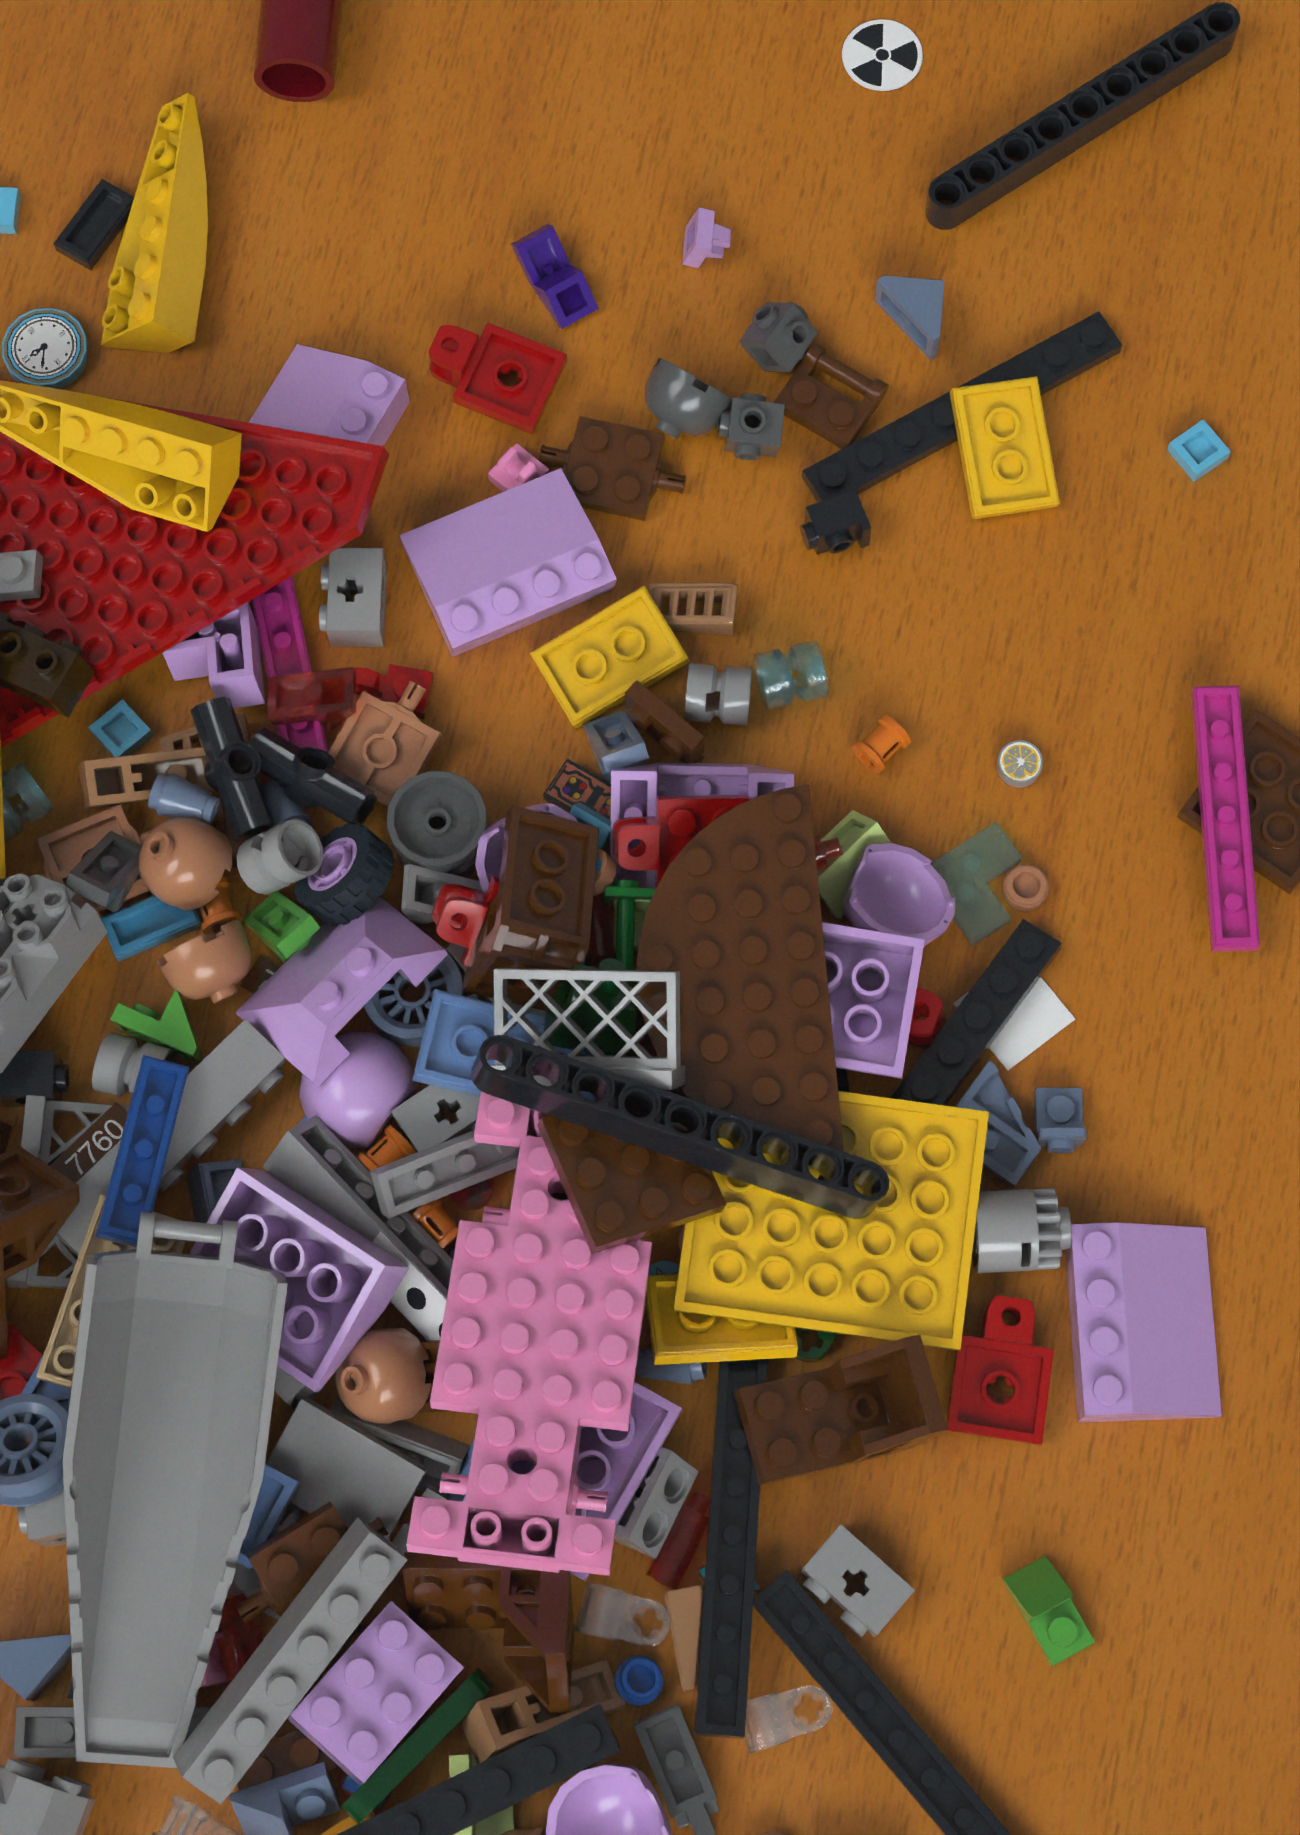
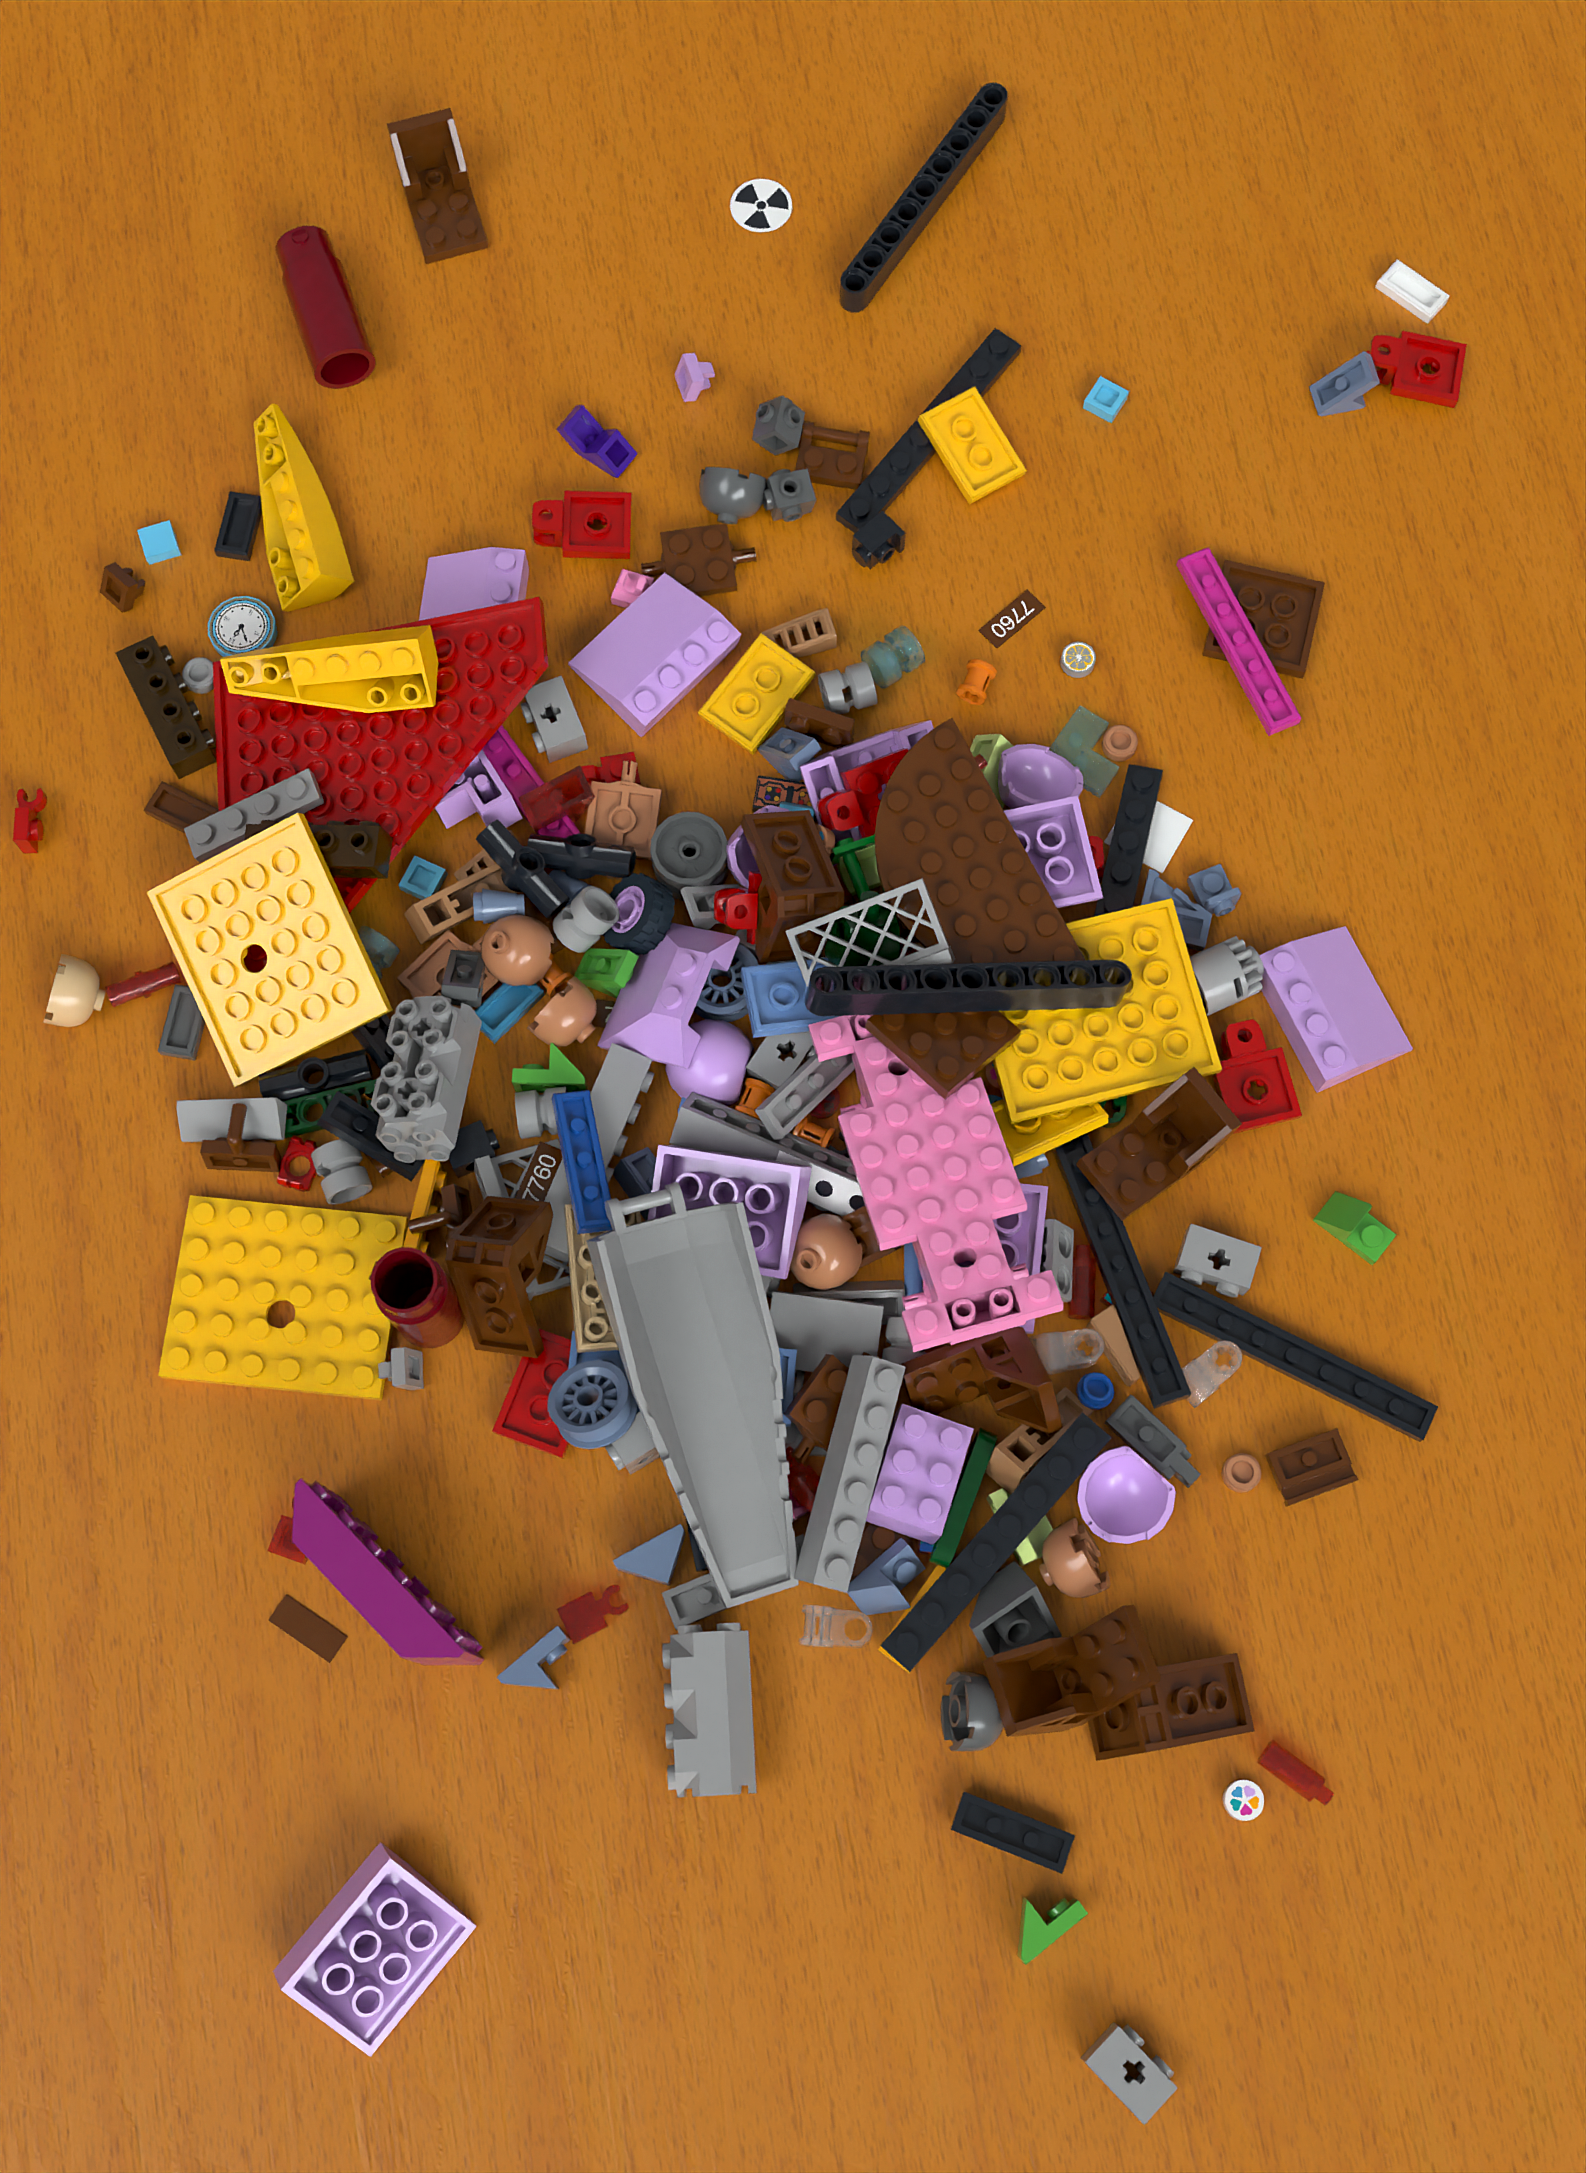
camera: 25 degrees left, 0 degrees up
(914, 307) = (865, 372): sand blue slope -> none
(962, 681) = (1012, 619): none -> reddish brown sticker

